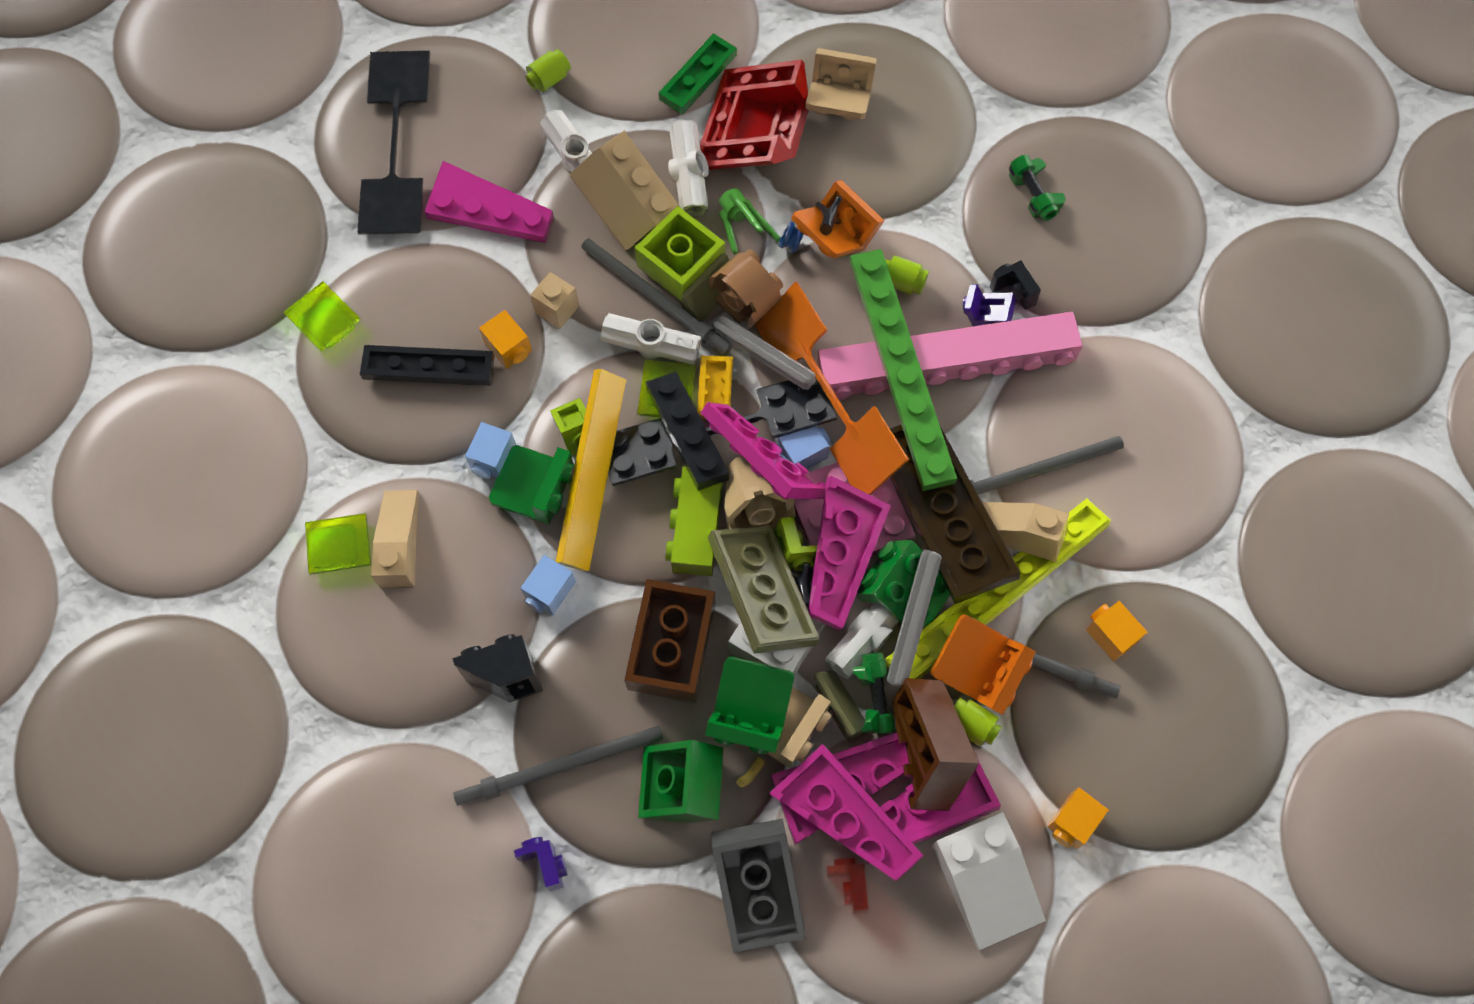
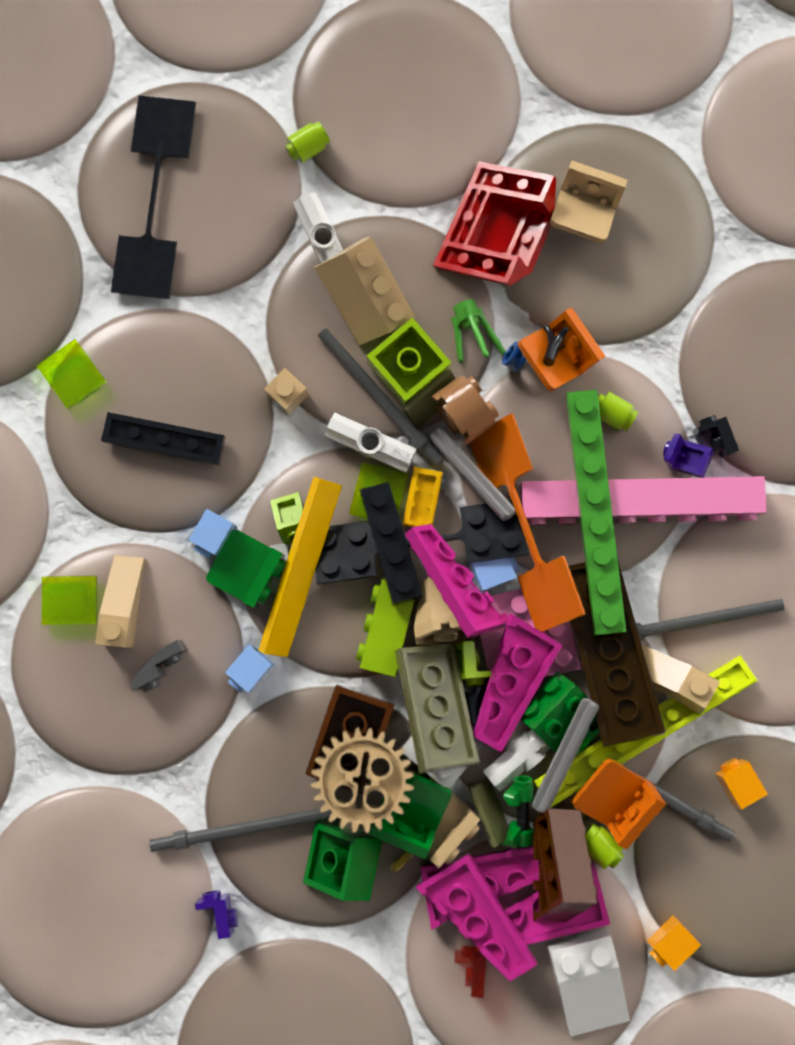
camera: 10 degrees right, 15 degrees up
(435, 607) = (152, 671): none -> dark grey slope
(481, 205) = (228, 277): dark pink wing -> none
(501, 668) = (201, 748): black slope -> none
(506, 339) = (237, 425): light orange brick -> none
(658, 670) = (390, 784): none -> tan gear
(688, 167) = (428, 269): white piece -> none
(697, 74) = (452, 165): green plate -> none
(758, 885) = (395, 957): dark grey slope -> none
(1042, 204) = (759, 353): green piece -> none

